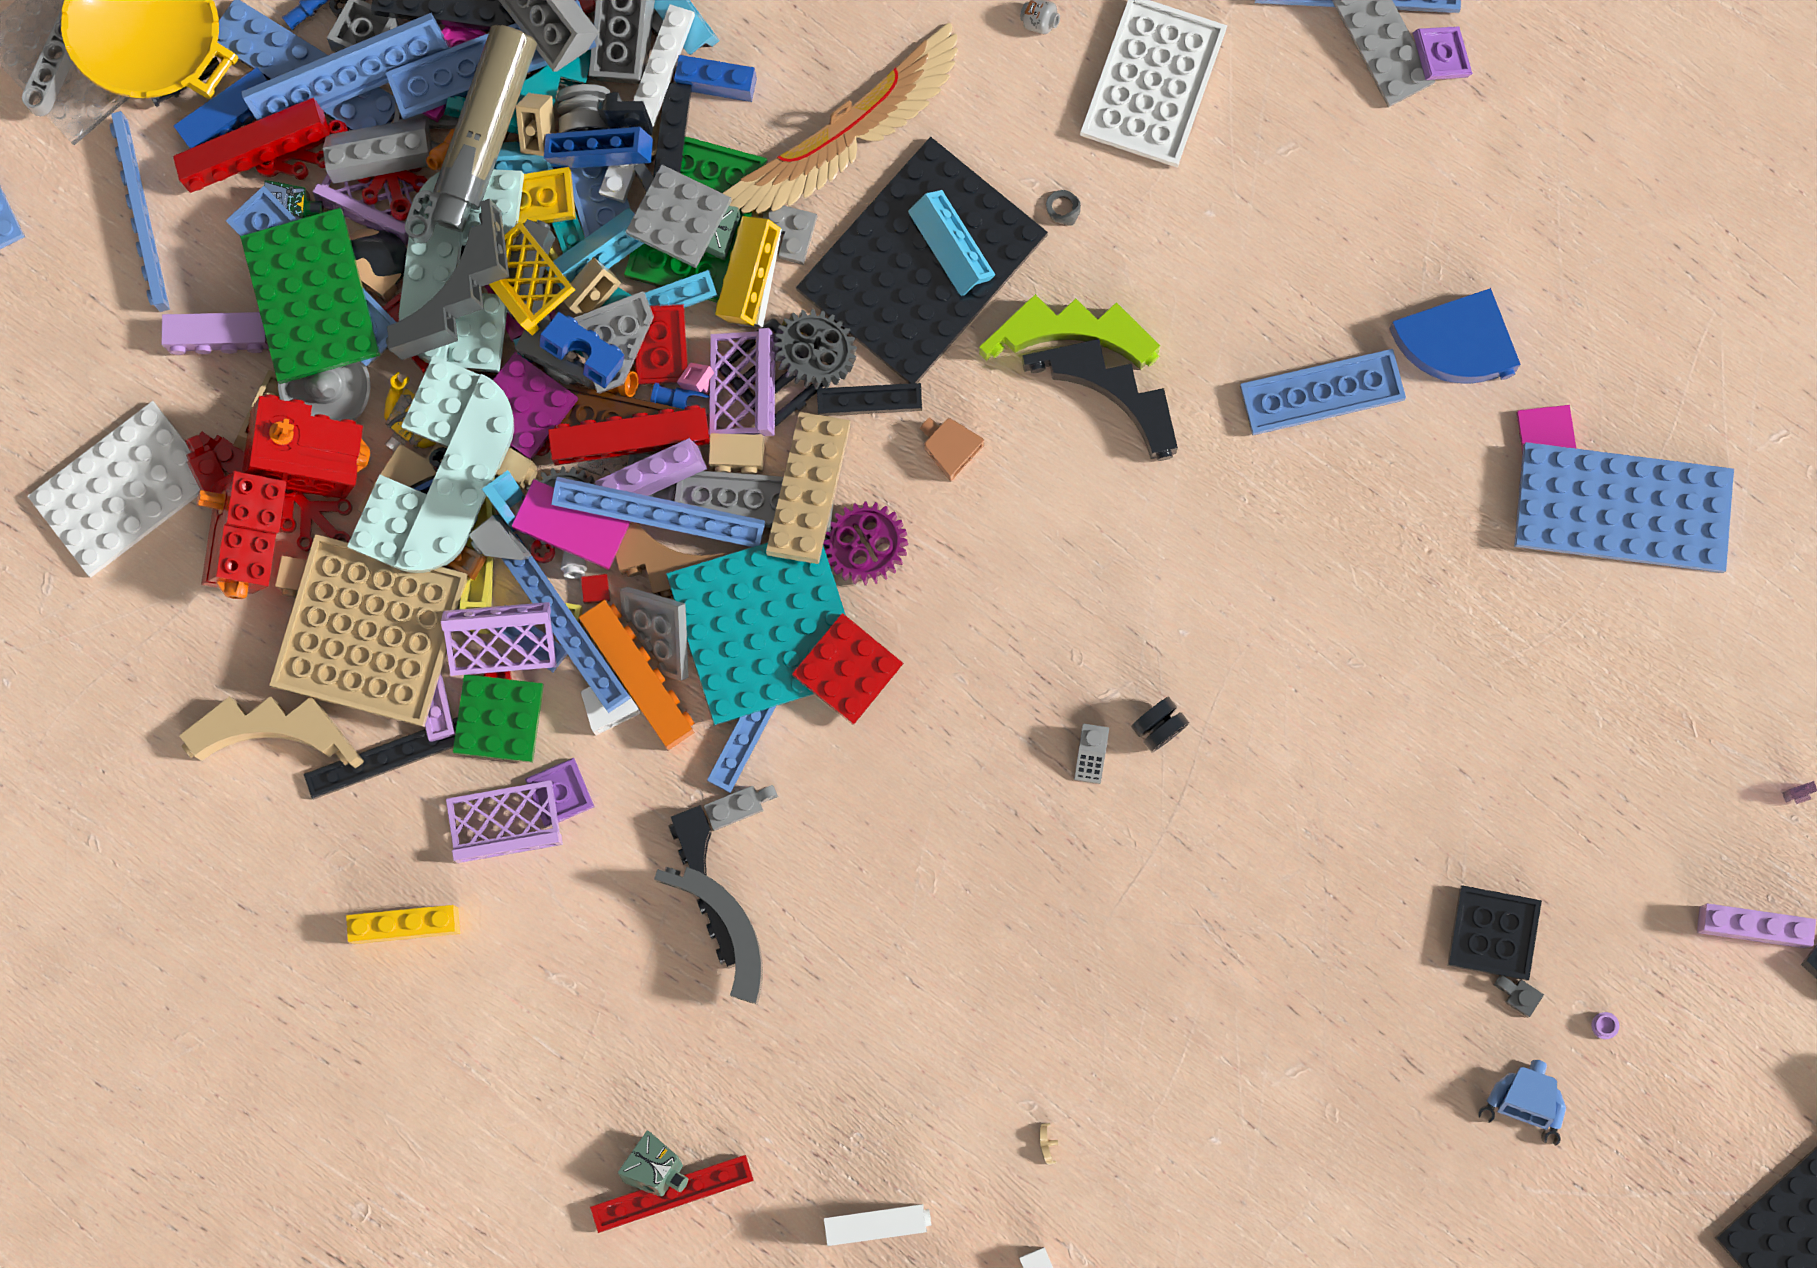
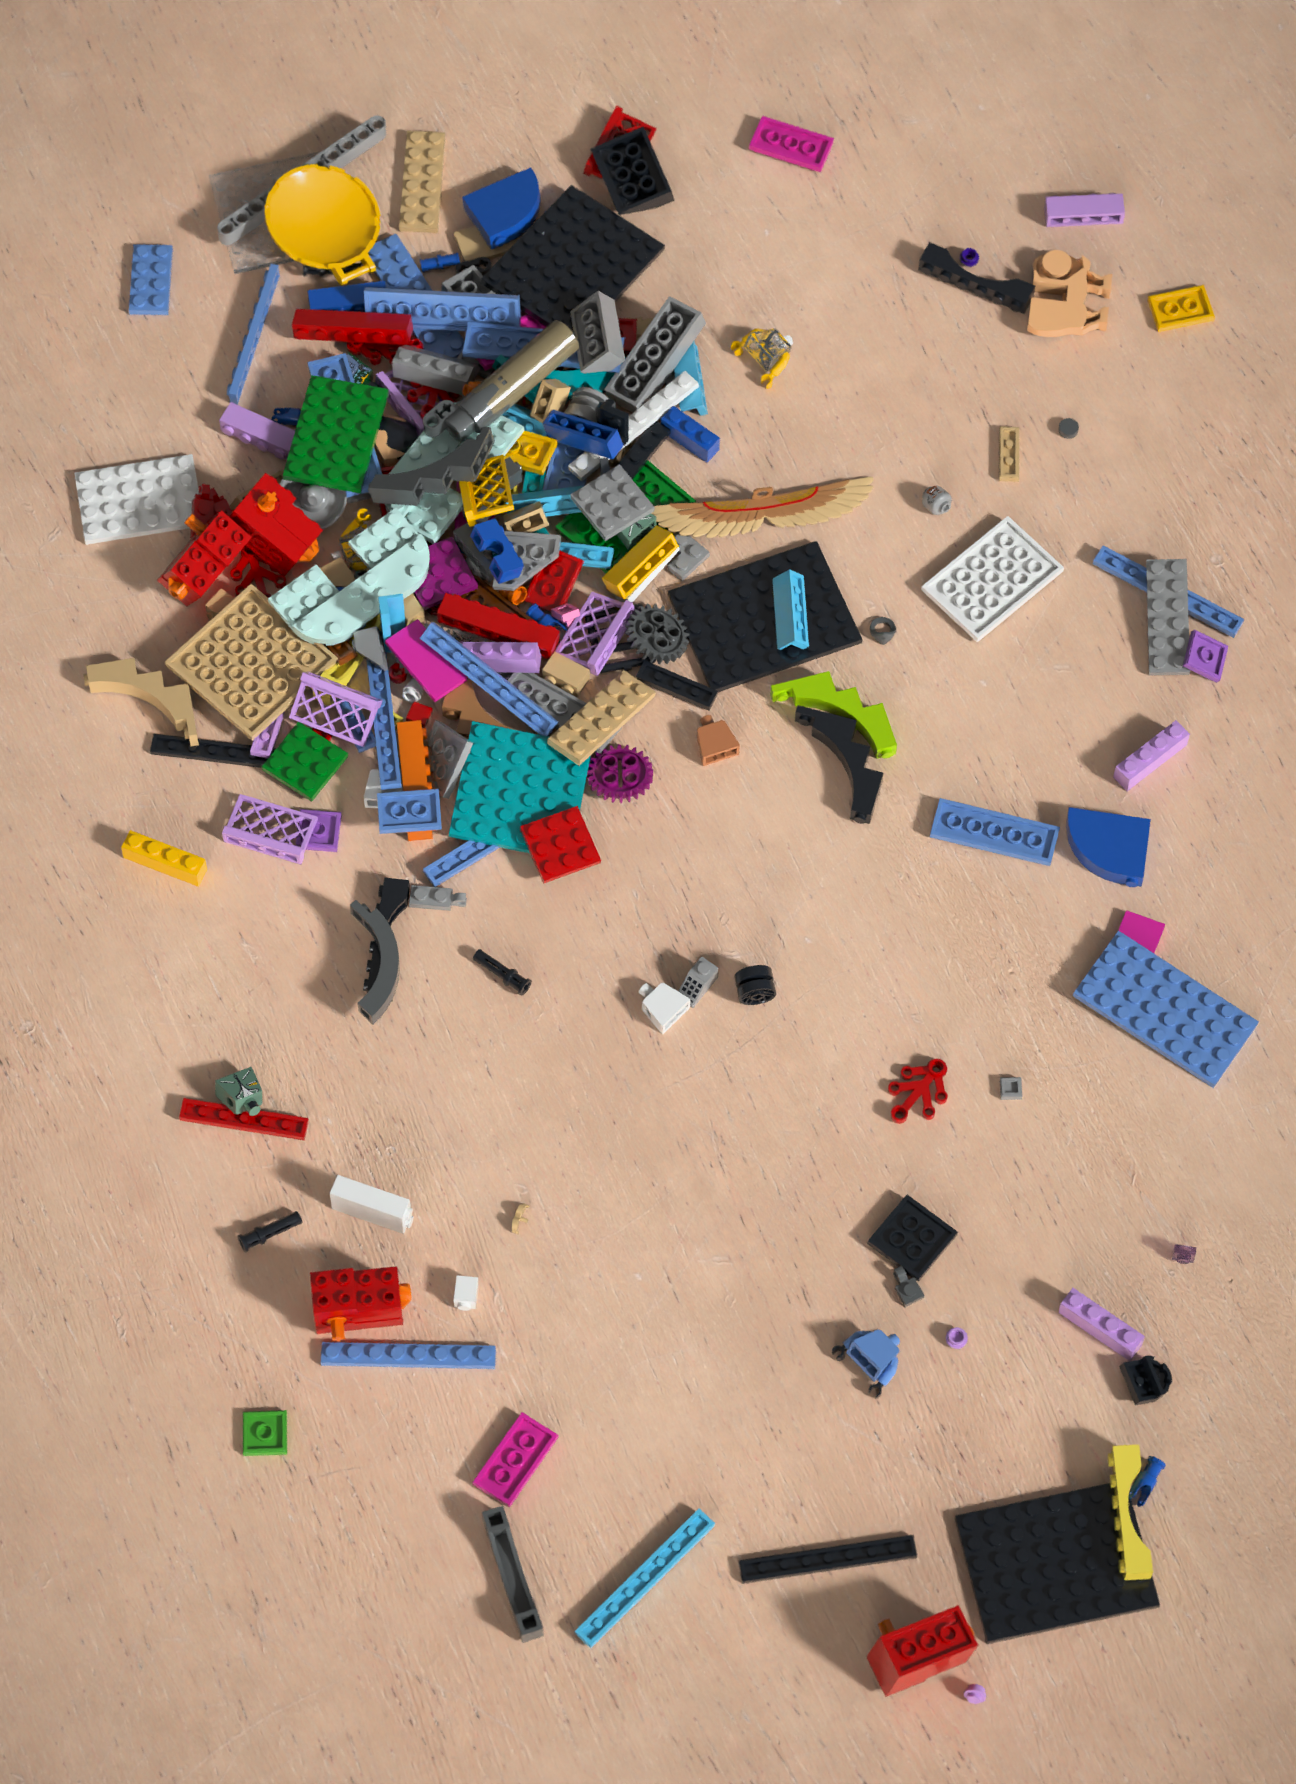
camera: 20 degrees right, 15 degrees down
(242, 294) = (287, 416): none -> blue piece
(655, 722) = (409, 811): none -> medium blue plate
(831, 851) = (509, 976): none -> black pin
(1067, 801) = (663, 1005): none -> white torso
(1406, 747) = (919, 1088): none -> red plant
(1447, 207) = (1151, 755): none -> lavender brick
(1504, 693) = (1010, 1088): none -> light grey tile

